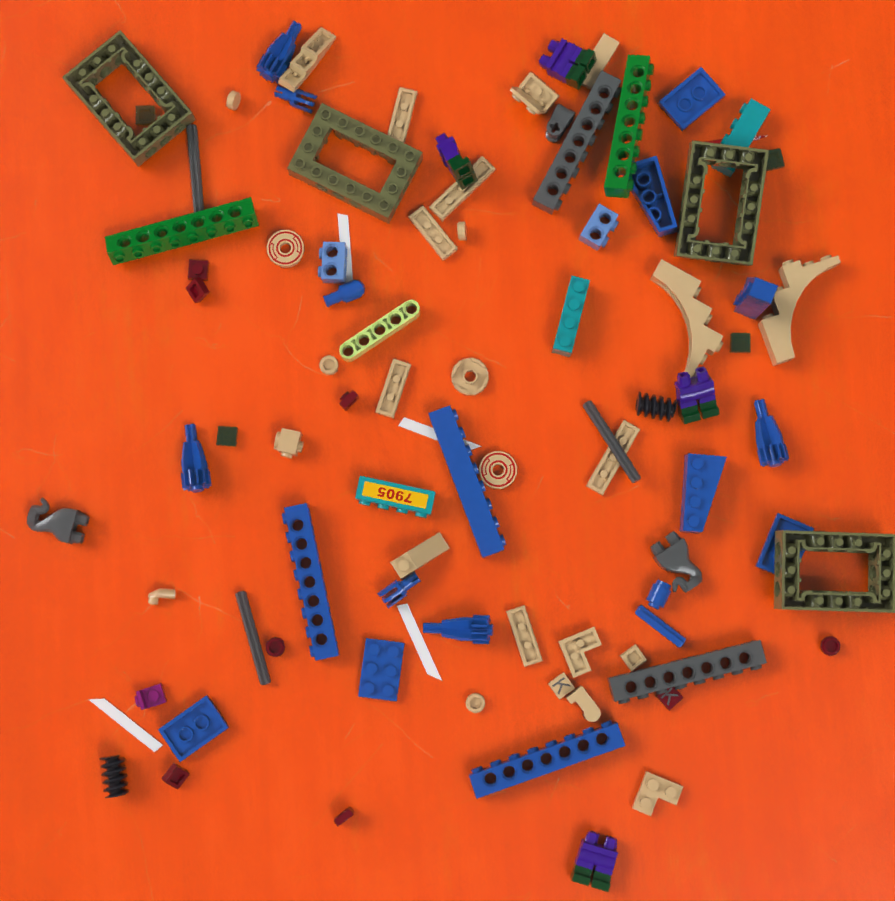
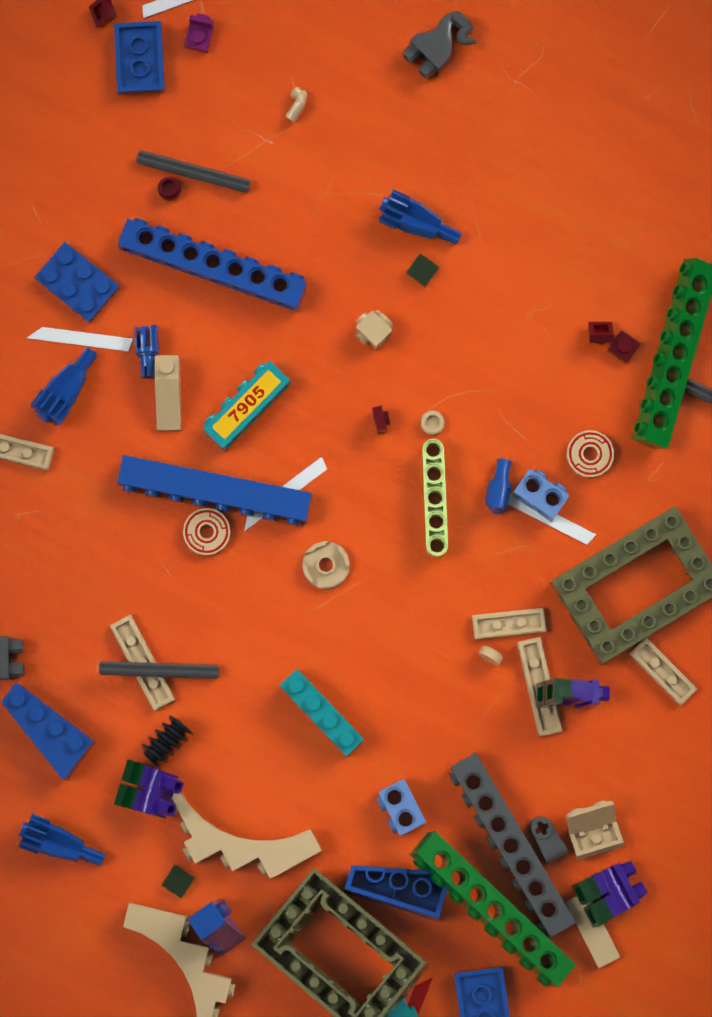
camera: 125 degrees right, 0 degrees up
(393, 388) = (364, 475): tan tile -> none

